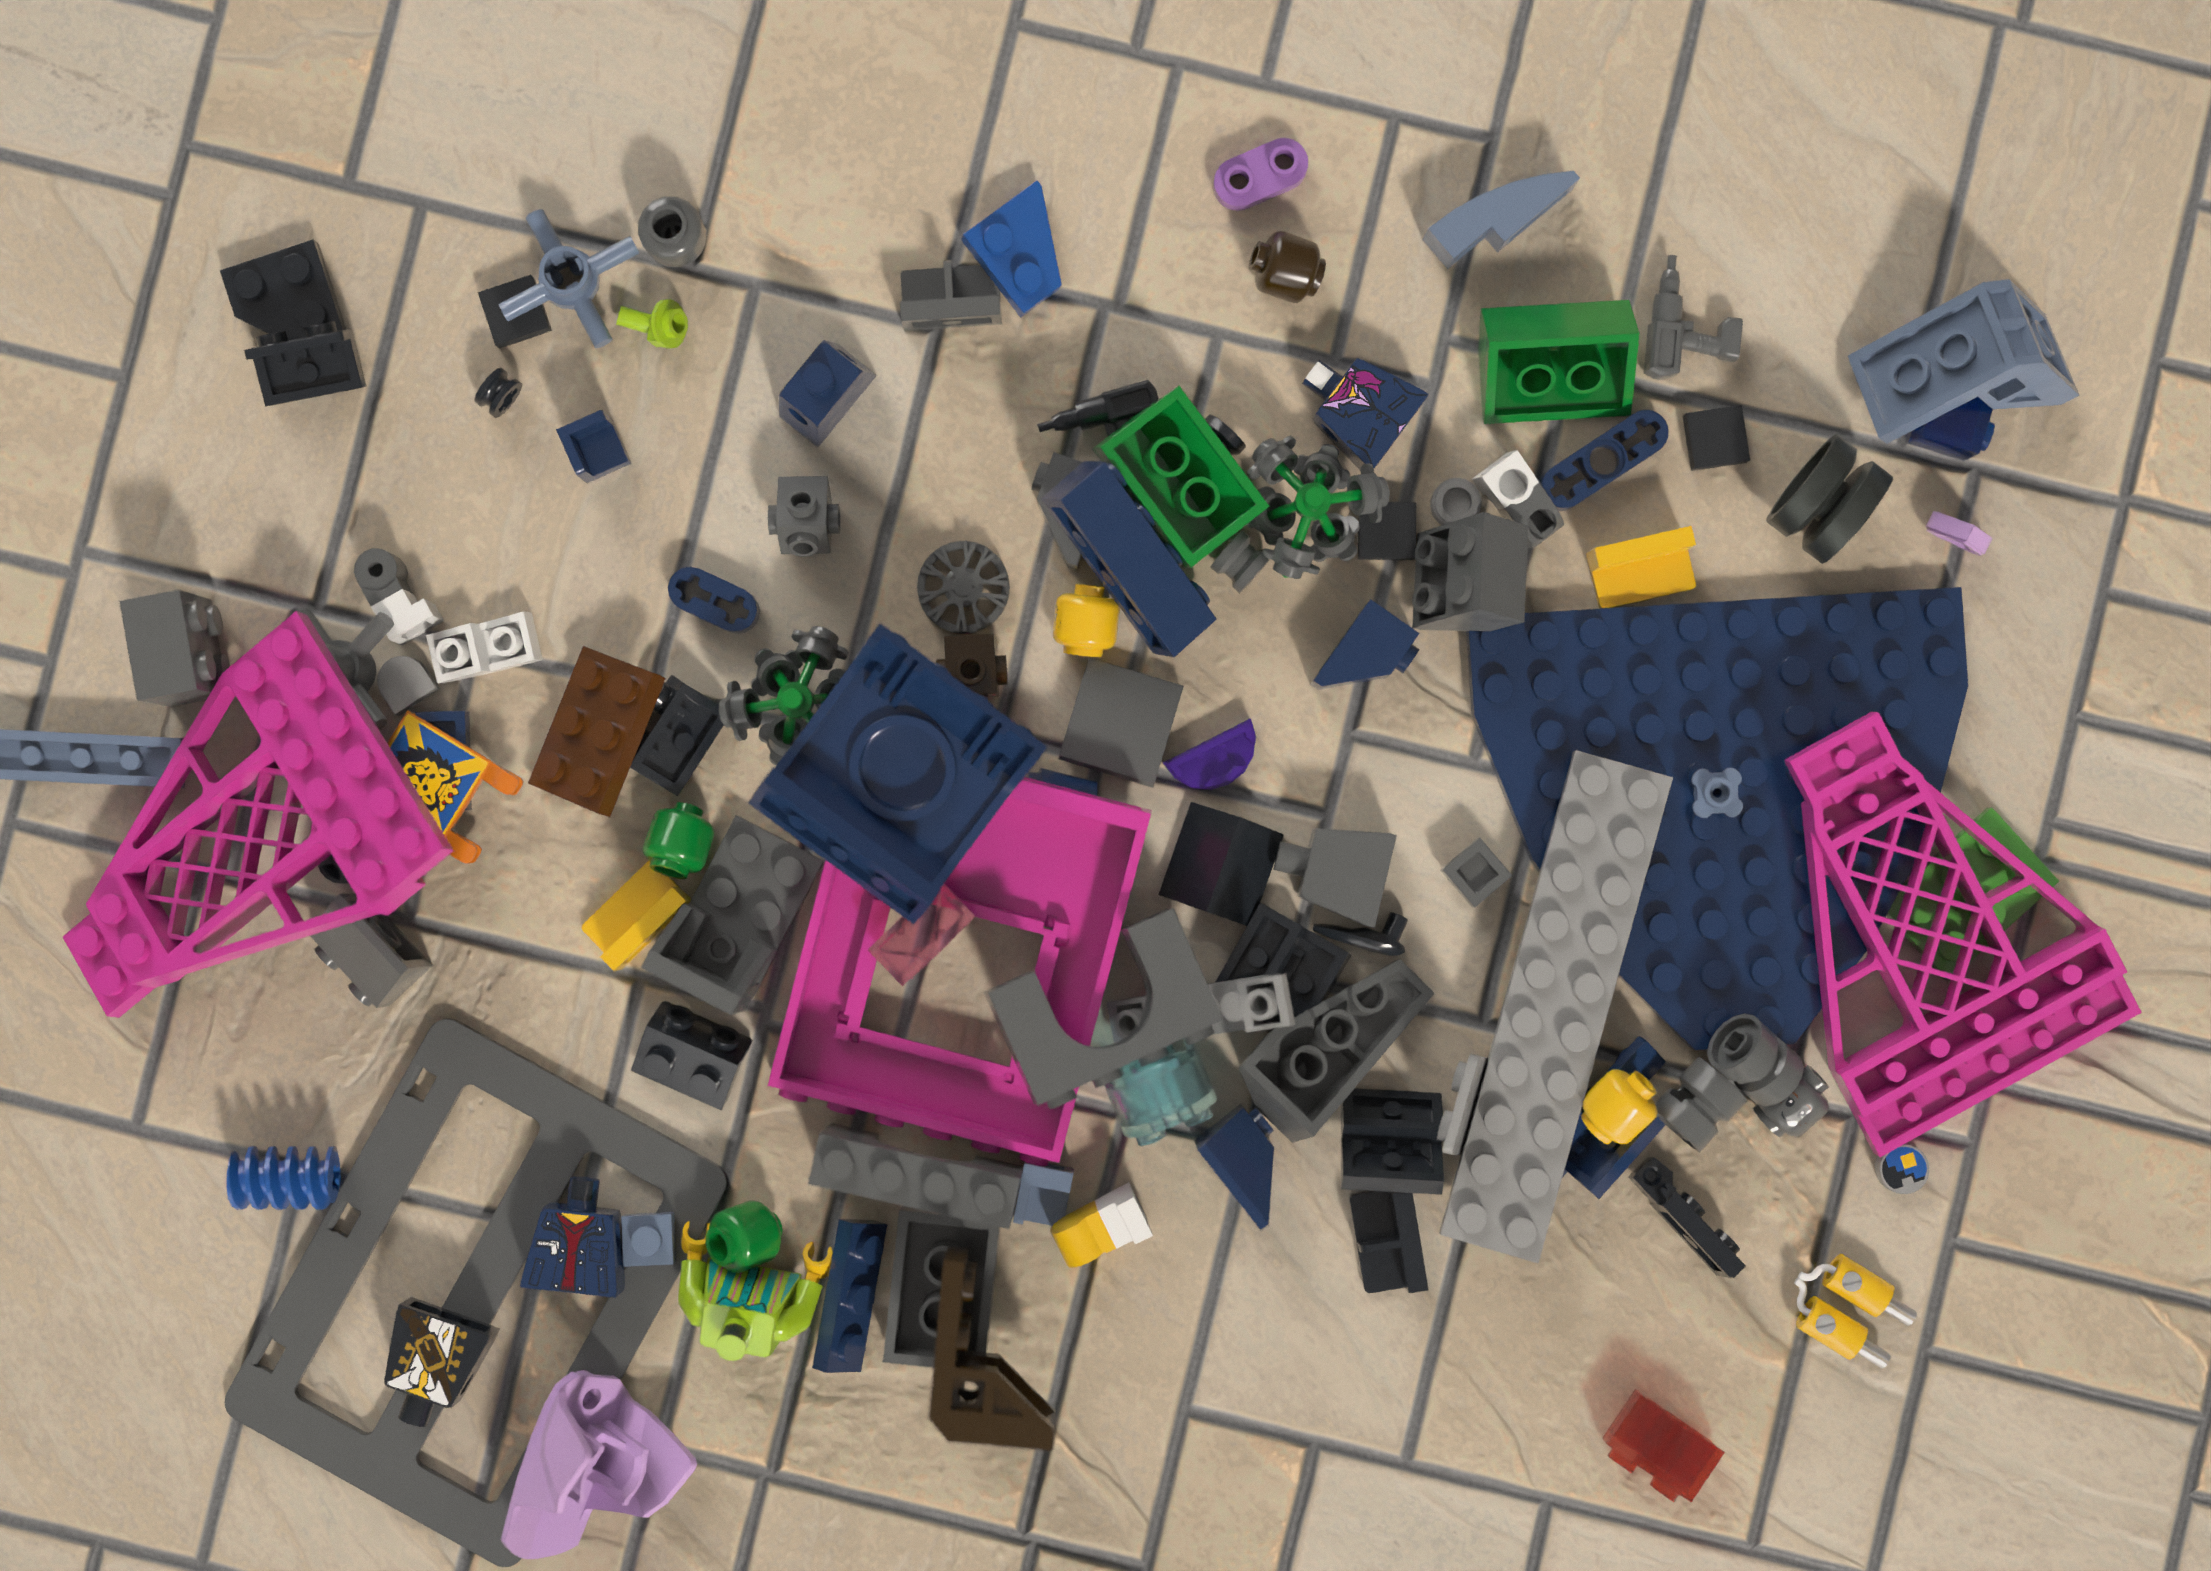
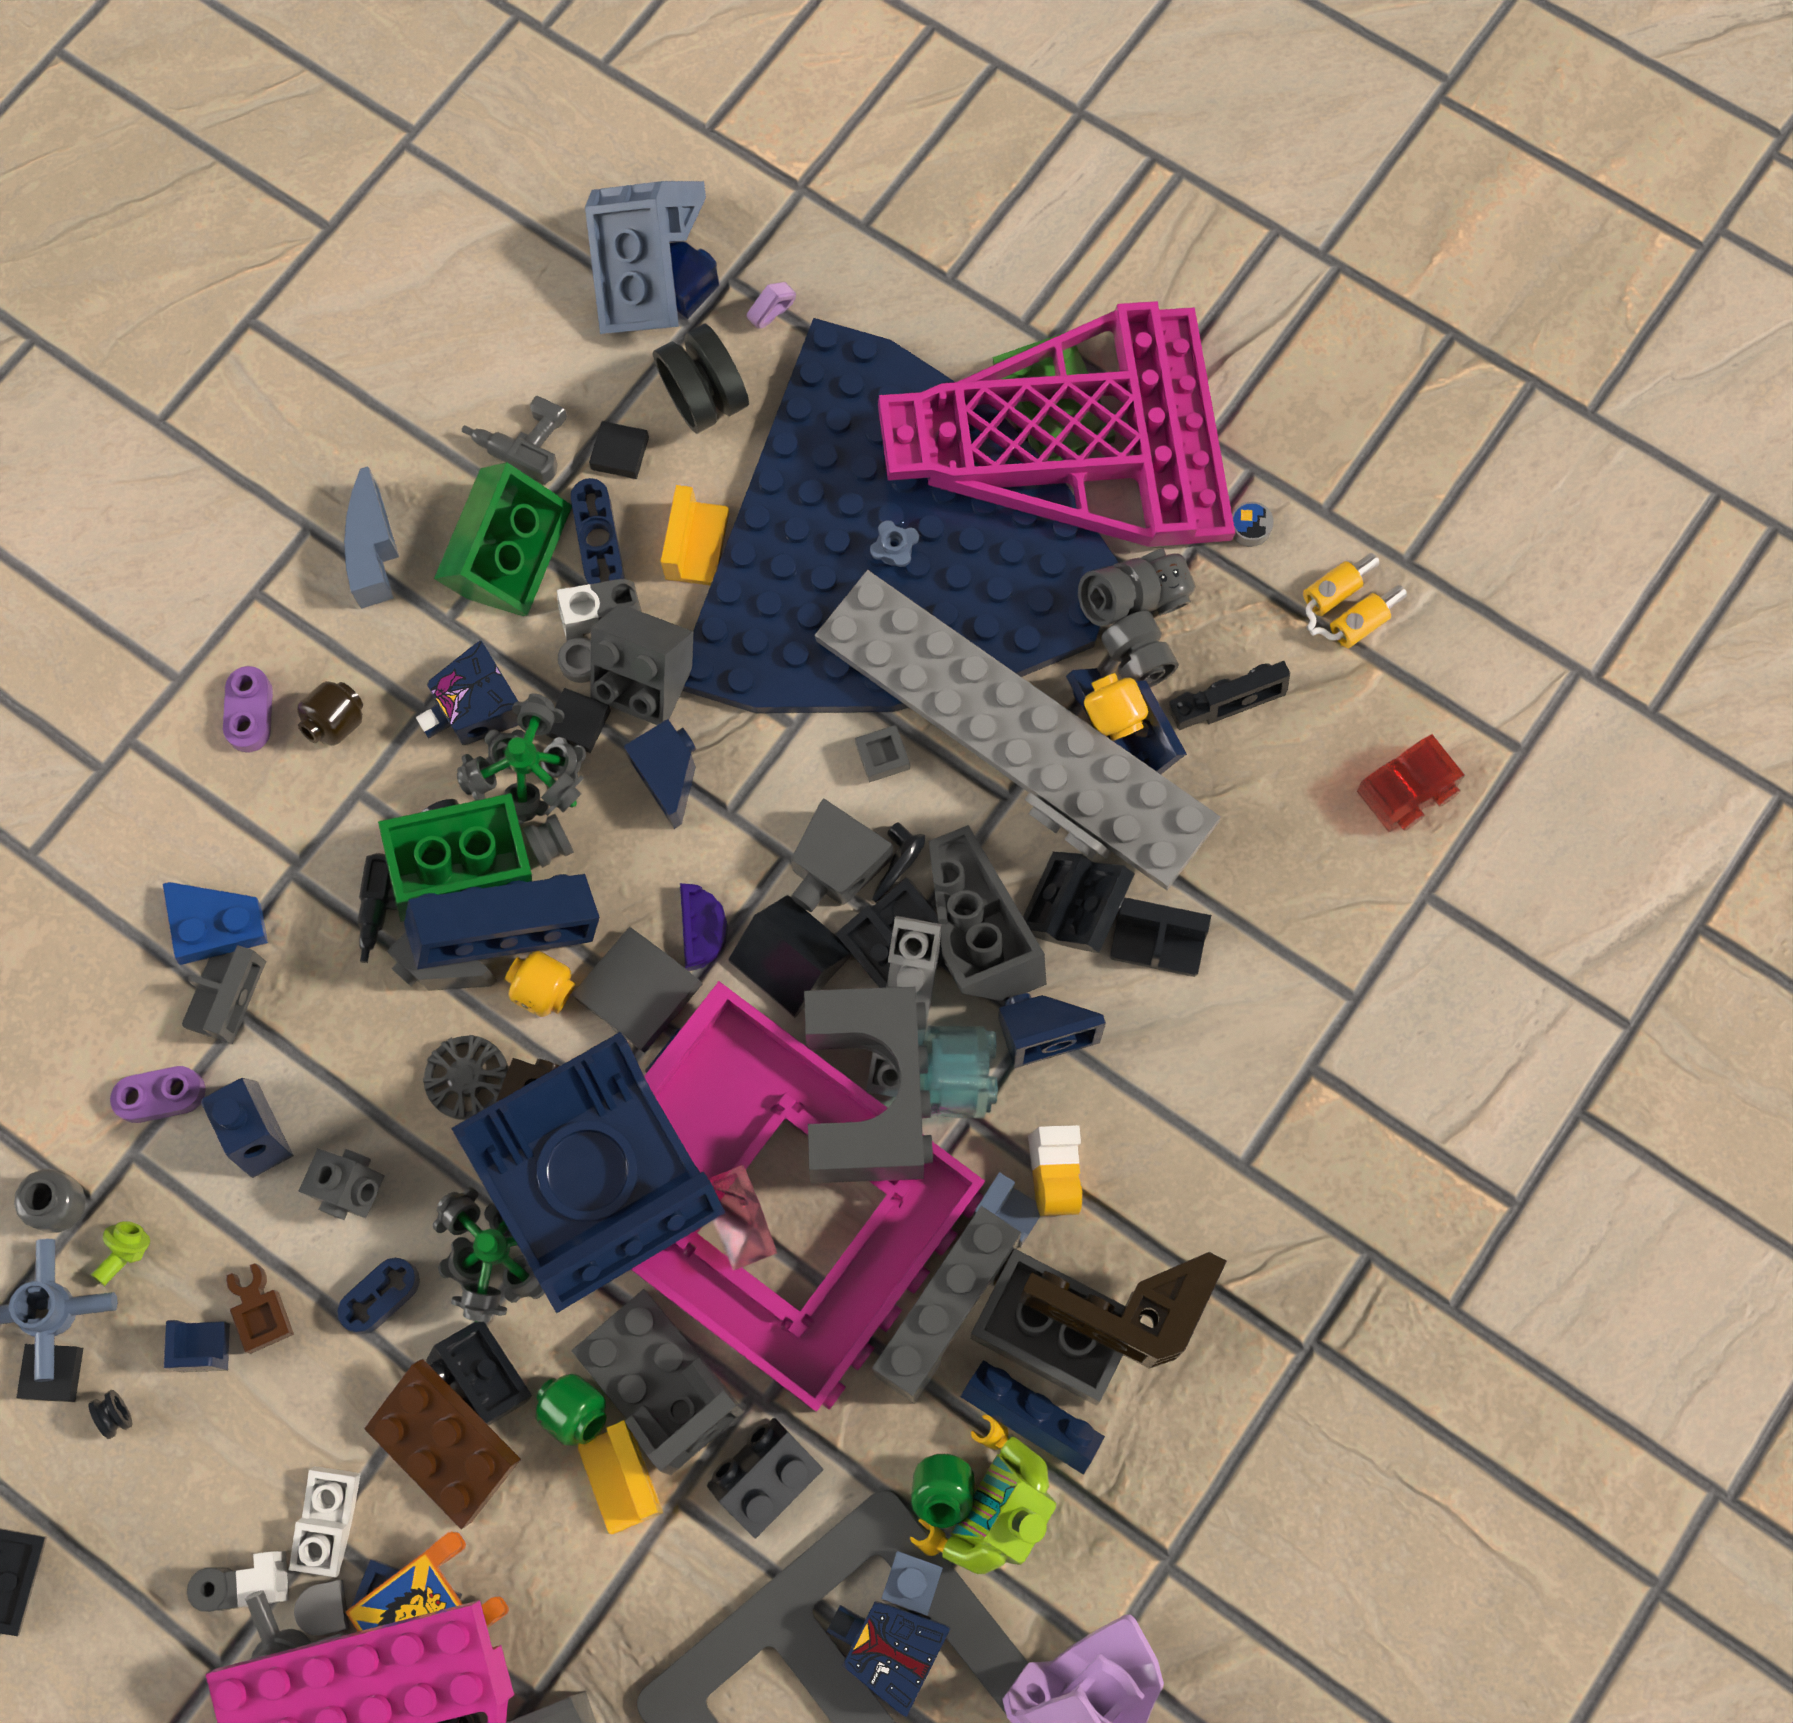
camera: 65 degrees left, 15 degrees down
(646, 493) = (261, 1316): none -> reddish brown plate
(821, 281) = (155, 1094): none -> medium lavender plate

